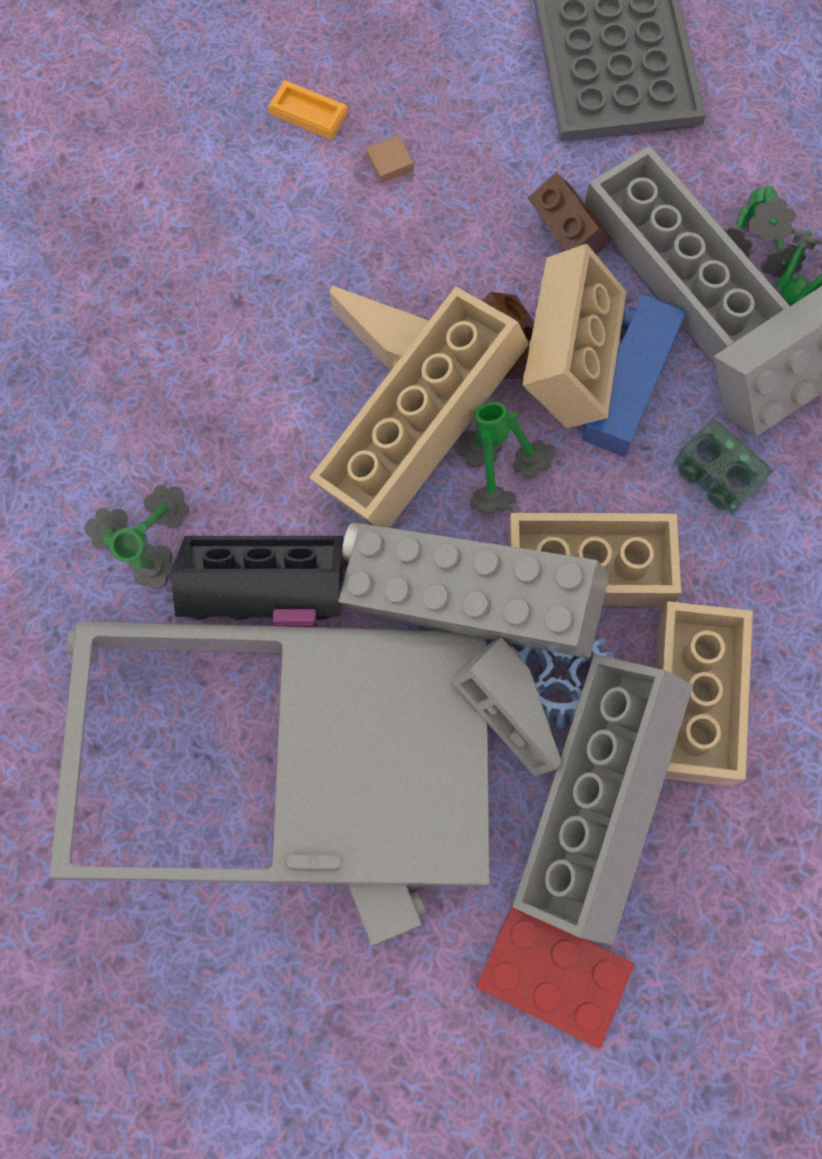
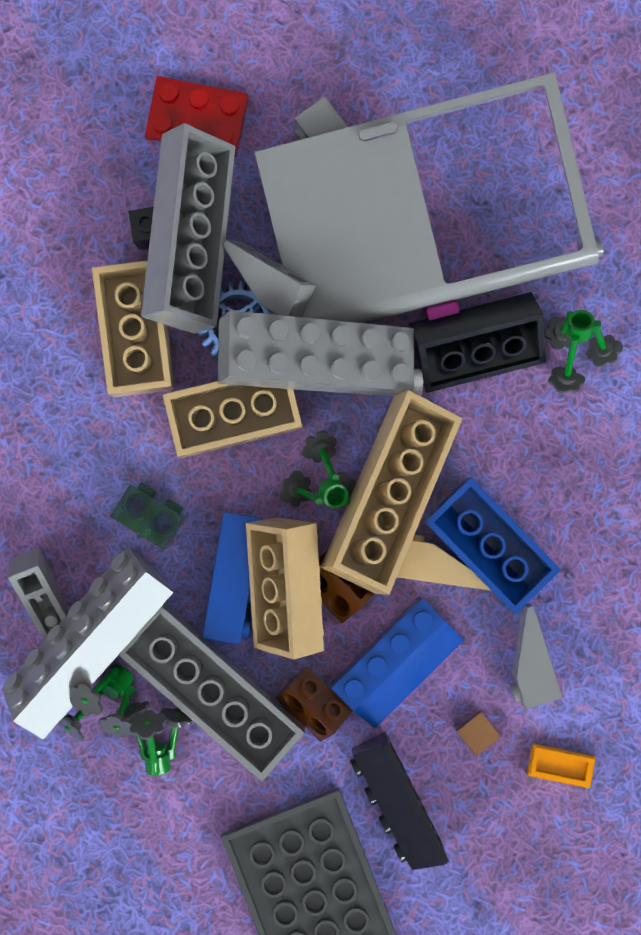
camera: 165 degrees right, 15 degrees up
(309, 207) = (532, 667): none -> light grey slope
(317, 335) = (492, 545): none -> blue slope
(464, 248) = (396, 662): none -> blue slope
(497, 104) = (399, 803): none -> black slope
(665, 829) = (141, 226): none -> black brick

